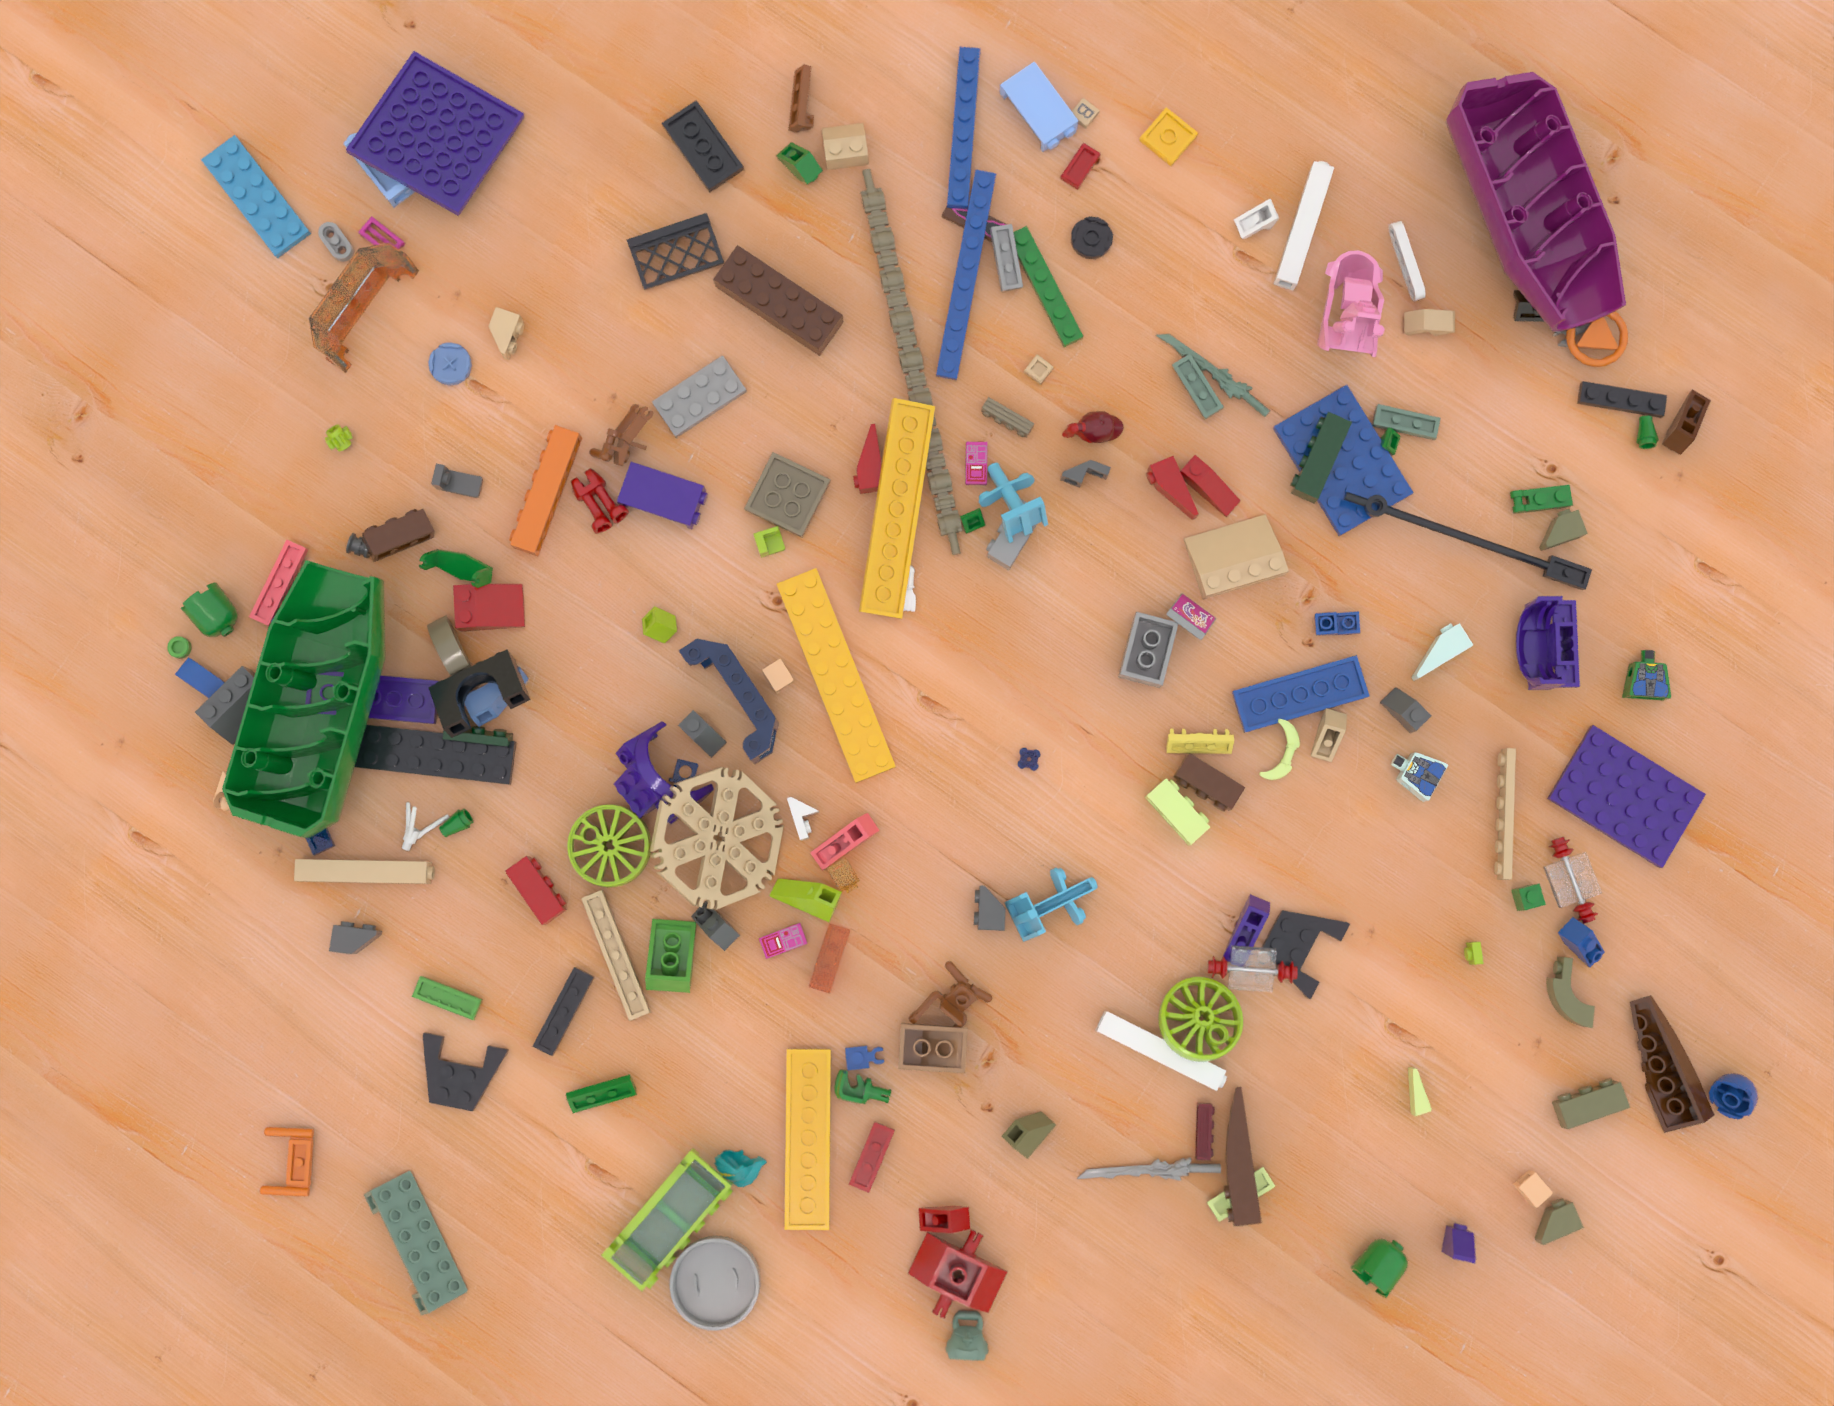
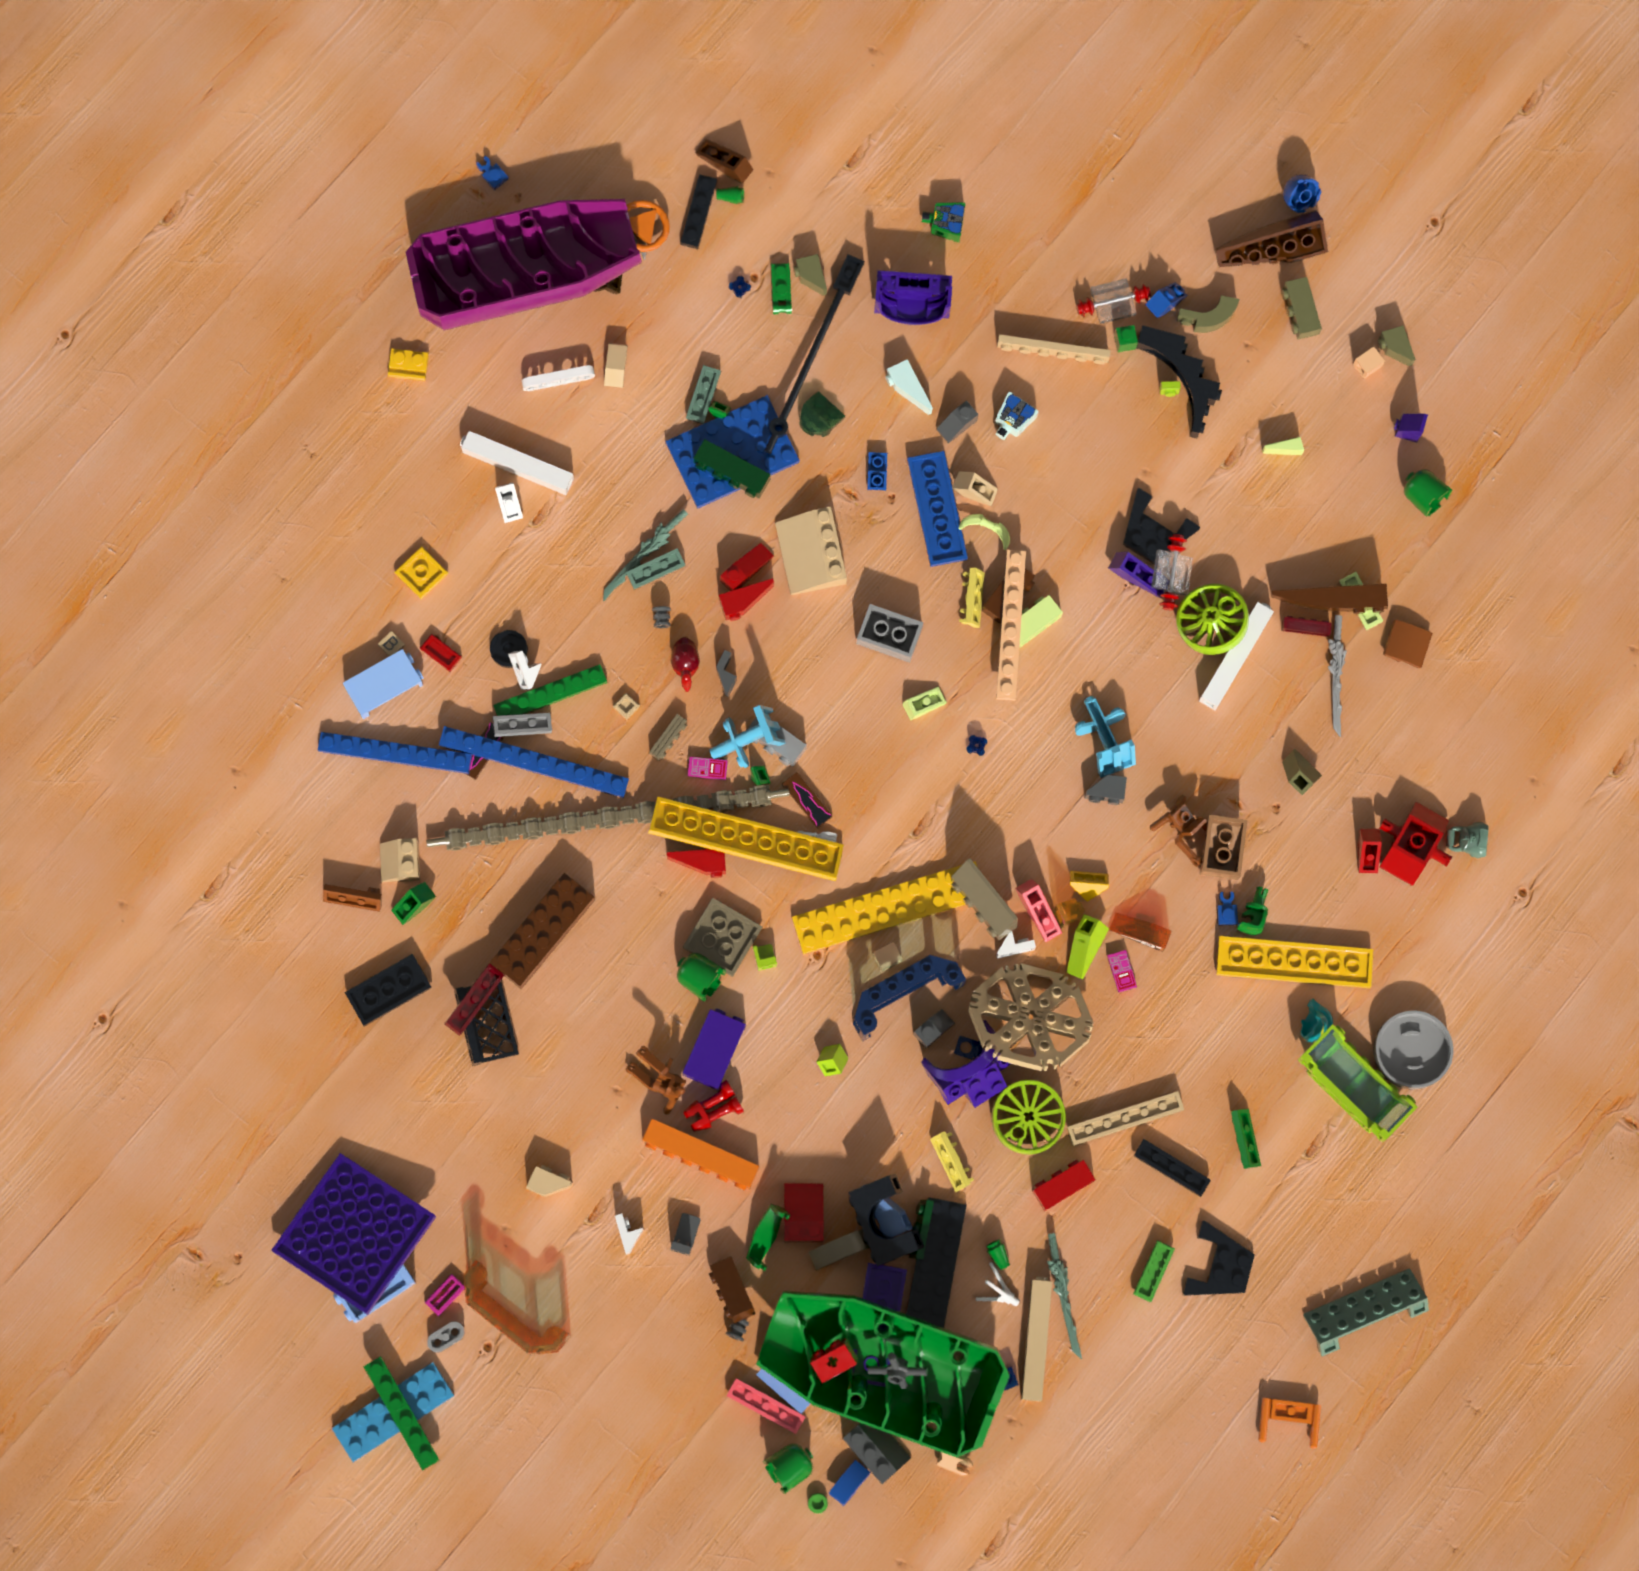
camera: 90 degrees left, 5 degrees down
(250, 202) = (401, 1413): none -> green plate
(309, 716) = (897, 1370): none -> dark grey bar
(317, 645) = (828, 1368): none -> red brick
(338, 437) = (635, 1342): lime gear -> none
(351, 939) = (1096, 1354): dark grey slope -> none
(426, 894) = (1061, 1283): none -> sand green sword
(450, 364) = (572, 1237): medium blue tile -> none
(450, 420) = (629, 1239): none -> white slope
(555, 764) = (951, 1161): none -> light yellow plate
(670, 955) = (1129, 1069): bright green slope -> none
(694, 231) = (474, 999): none -> dark red plate
(699, 396) = (624, 1010): light grey plate -> none
(715, 926) = (1106, 1028): dark grey slope -> none
(740, 471) = (699, 975): none -> green cylinder
(846, 776) = (984, 900): none -> dark tan slope
(871, 1157) = (1313, 908): plate -> none
(880, 896) = (1089, 883): none -> yellow slope
(949, 575) = (807, 800): none -> tile
(1063, 256) = (525, 674): none -> white slope
(1072, 697) = (924, 703): none -> yellowish green slope
(1143, 397) = (661, 617): none -> dark grey bush
(1170, 785) = (1011, 625): none -> light nougat plate
(1191, 616) = (863, 593): tile -> none
(1195, 1252) = (1407, 643): none -> dark orange slope
(1360, 299) = (628, 420): bright pink piece -> none
(1395, 553) = (819, 416): none -> clear green slope
(1404, 100) = (408, 364): none -> yellow plate
(1522, 949) = (1170, 349): none -> black arch
(1532, 454) = (739, 292): none -> clear blue plate
(1626, 796) = (1044, 249): dark purple plate -> none
(1638, 169) = (493, 174): none -> blue plate

